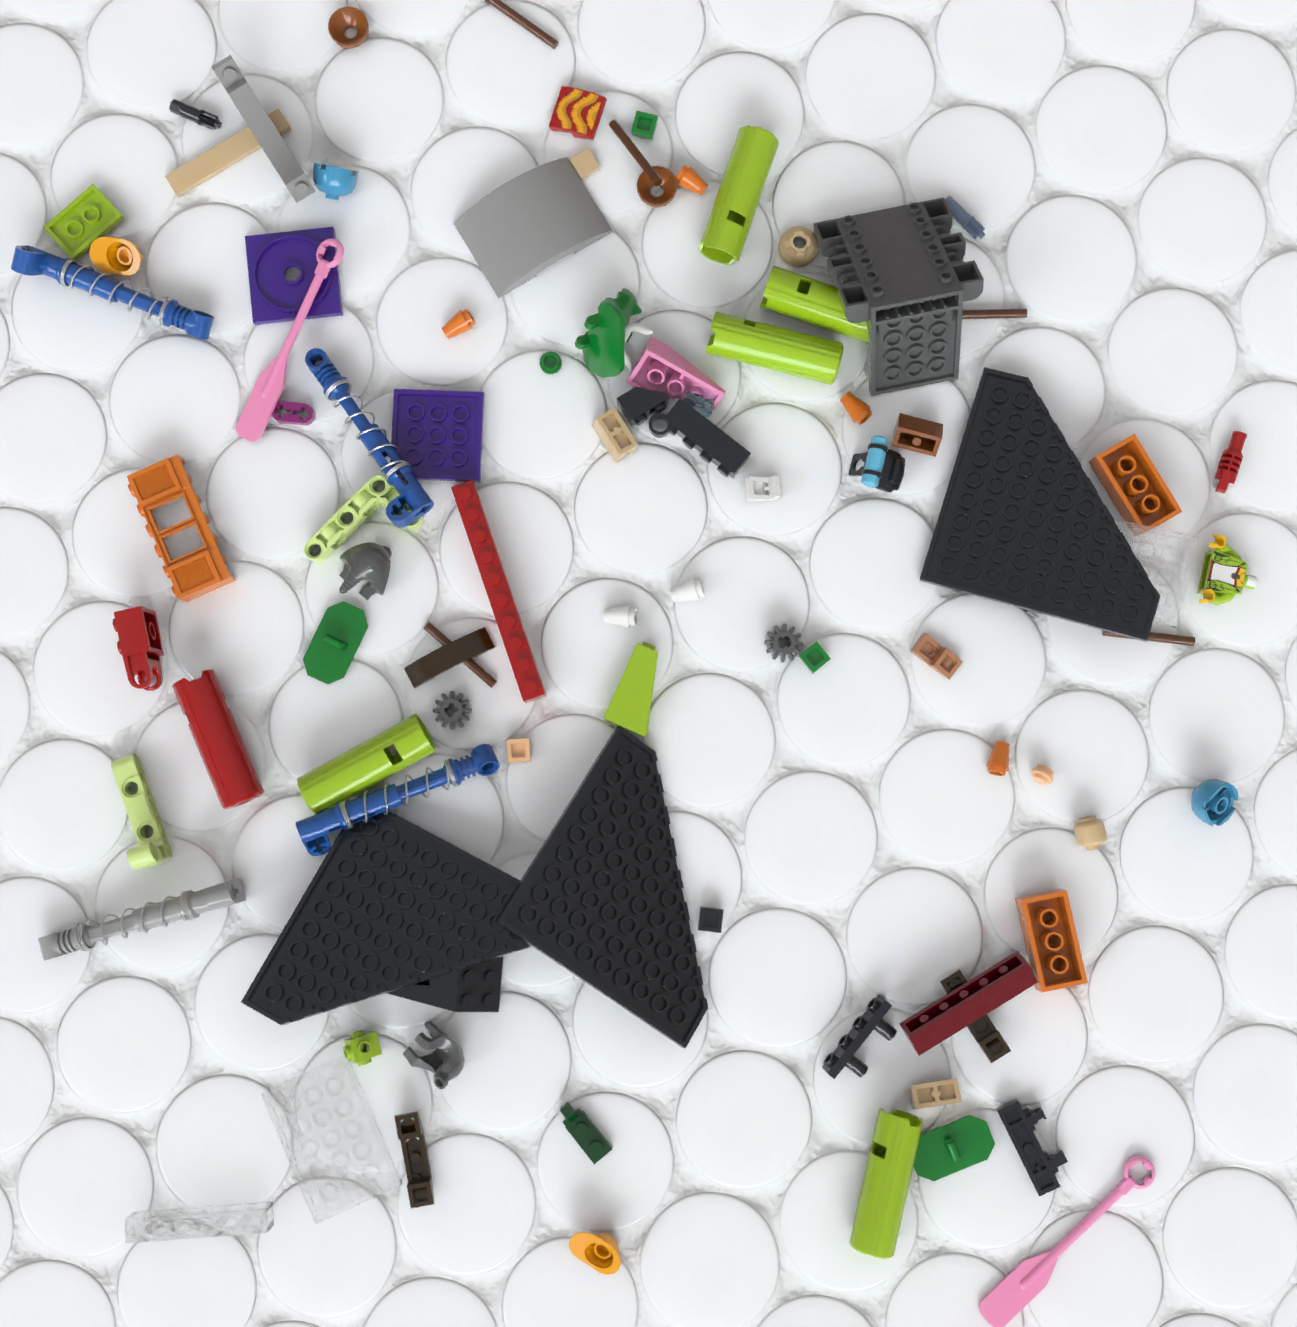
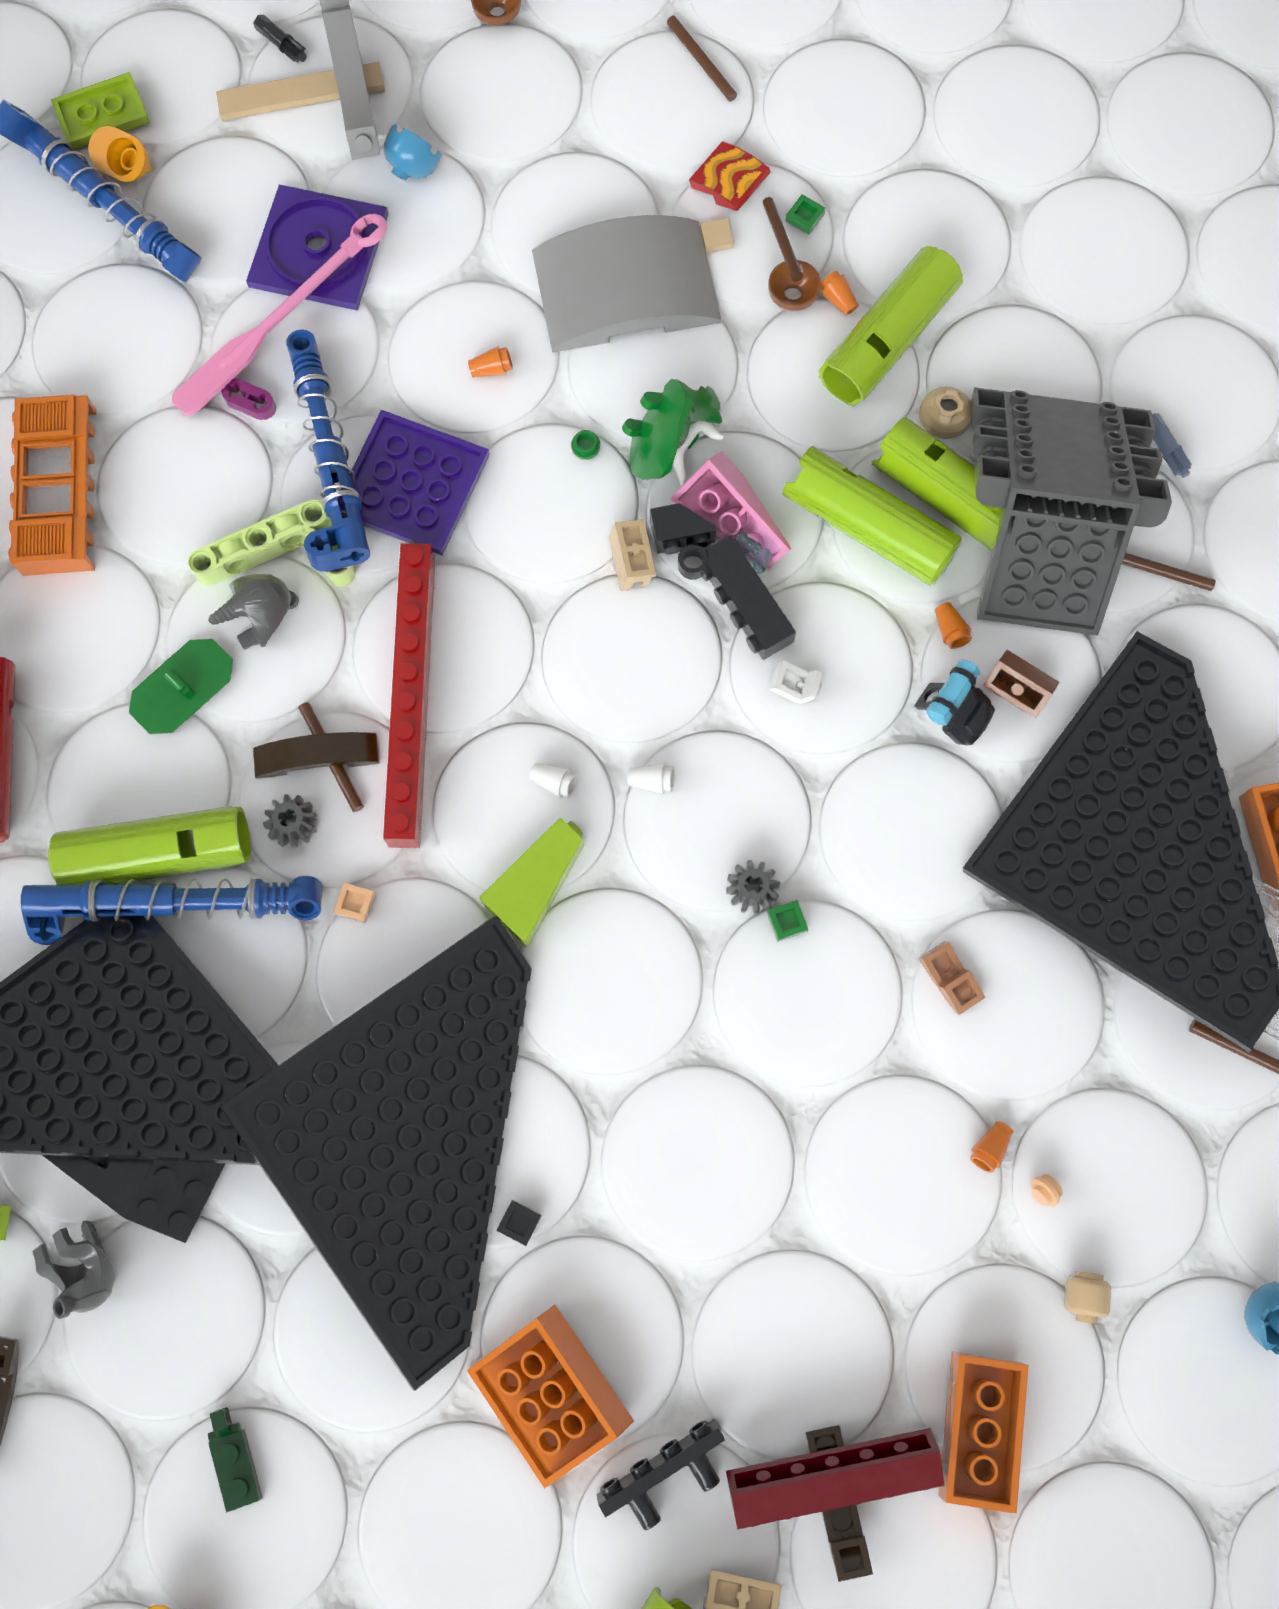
camera: 20 degrees right, 10 degrees down
(771, 1019) = (550, 1396): none -> orange slope

